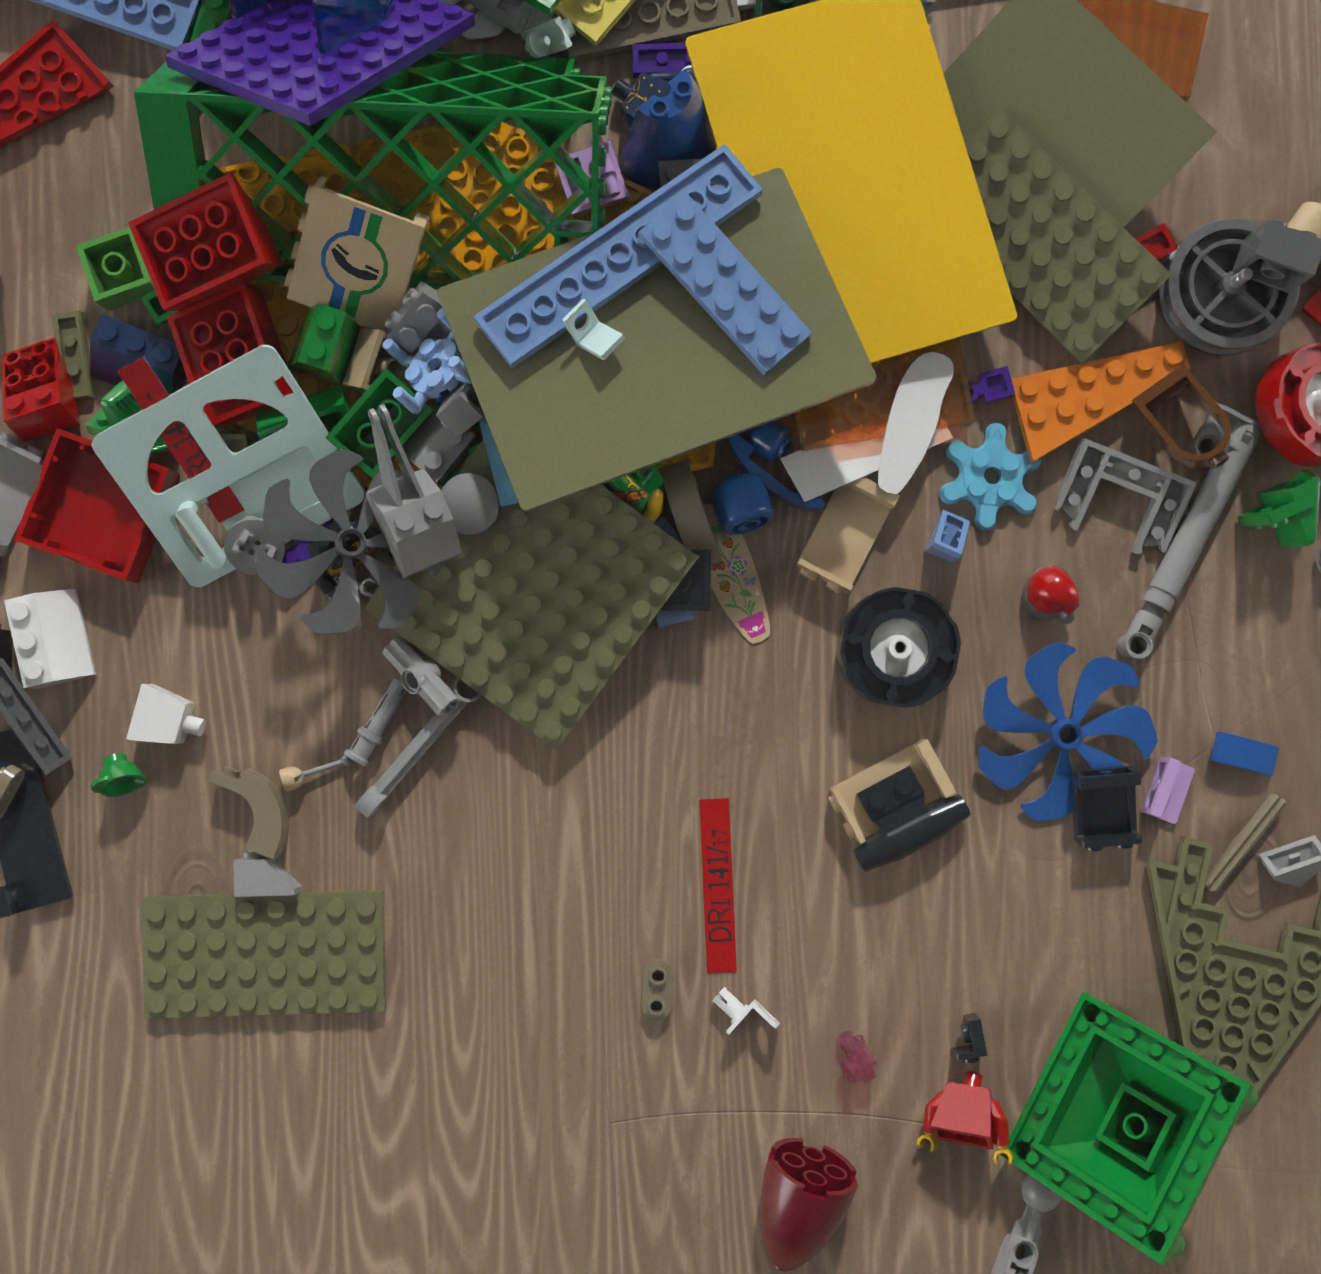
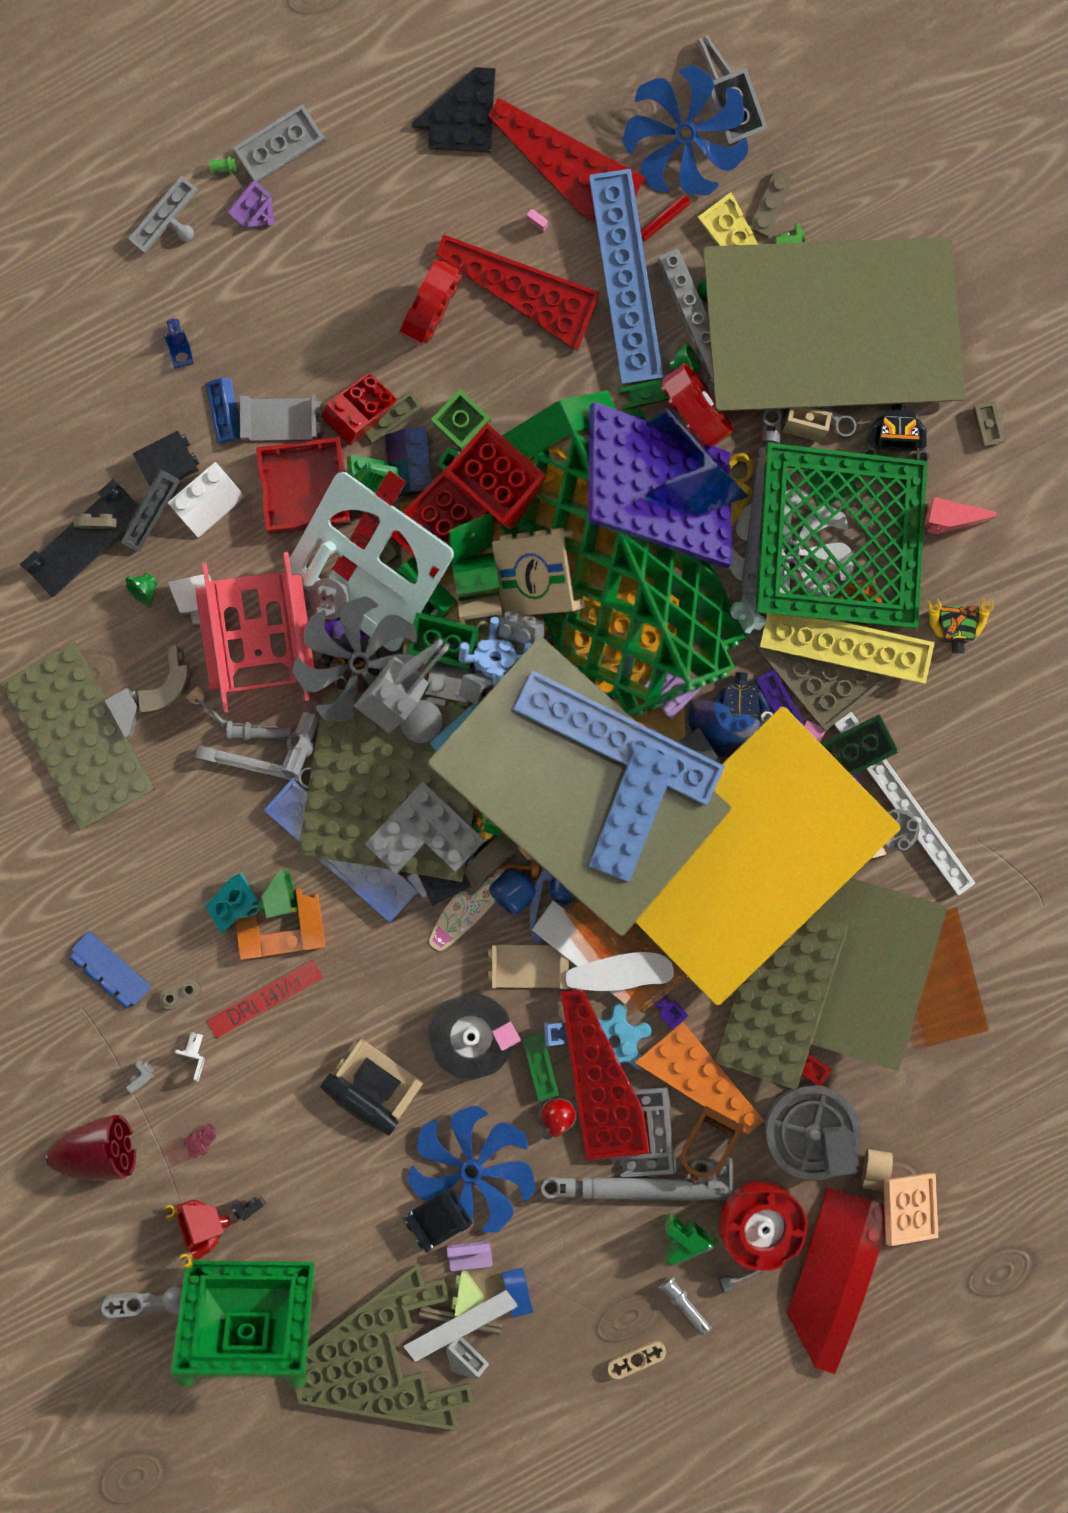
camera: 65 degrees right, 0 degrees up
(177, 679) = (220, 594): none -> coral piece
(269, 321) = (471, 537): none -> green piece
(577, 873) = (228, 907): none -> teal piece
(585, 1058) = (106, 964): none -> blue windscreen
(594, 335) = (559, 749): light aqua bracket -> none
(595, 569) = (422, 820): none -> light grey plate
(598, 800) = (279, 896): none -> green slope
(645, 862) = (308, 937): none -> orange wedge
(649, 669) = (377, 886): none -> blue plate
(727, 464) = (535, 867): none -> orange wheel
(740, 1099) = (138, 1080): none -> light grey bracket
(922, 600) = (506, 1036): none -> bright pink tile
(978, 582) = (540, 1067): none -> green plate
(1060, 519) = (606, 1101): none -> red wing
(1224, 818) = (468, 1294): none -> yellowish green slope
(1255, 845) = (460, 1326): none -> white sticker

